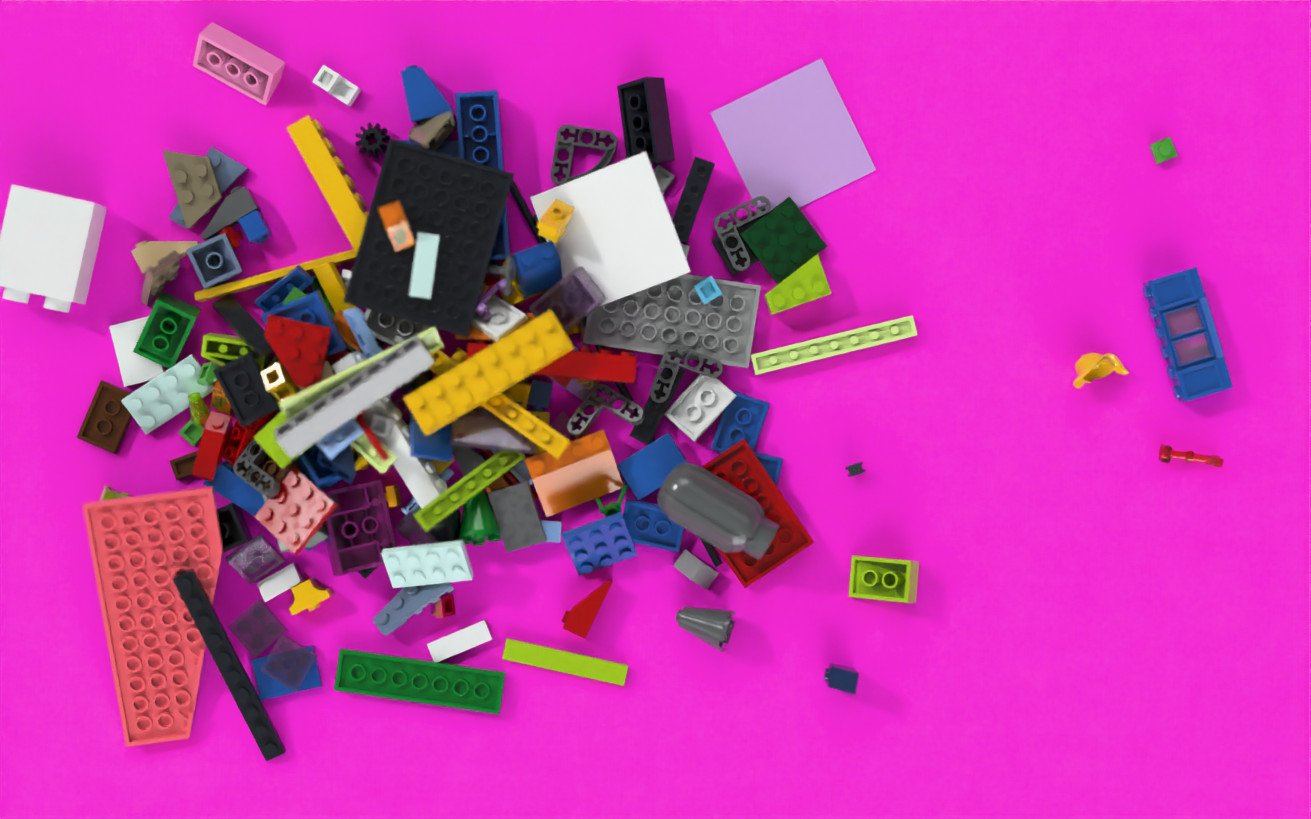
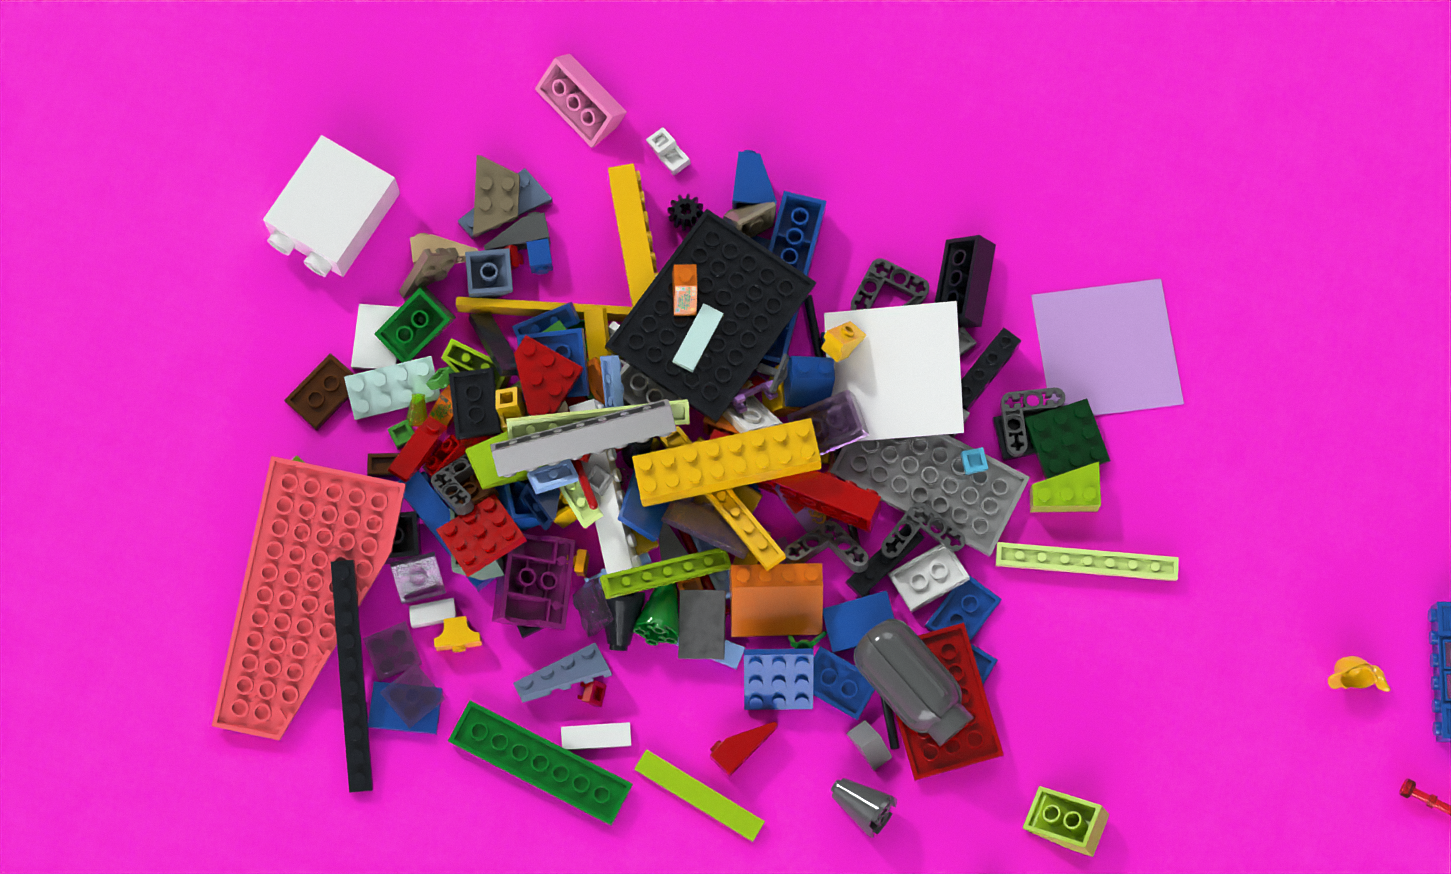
camera: 15 degrees right, 15 degrees down
(427, 564) = (594, 638): light aqua plate -> none
(539, 395) = (767, 510): dark blue brick -> none
(855, 469) = (1070, 695): bush -> none

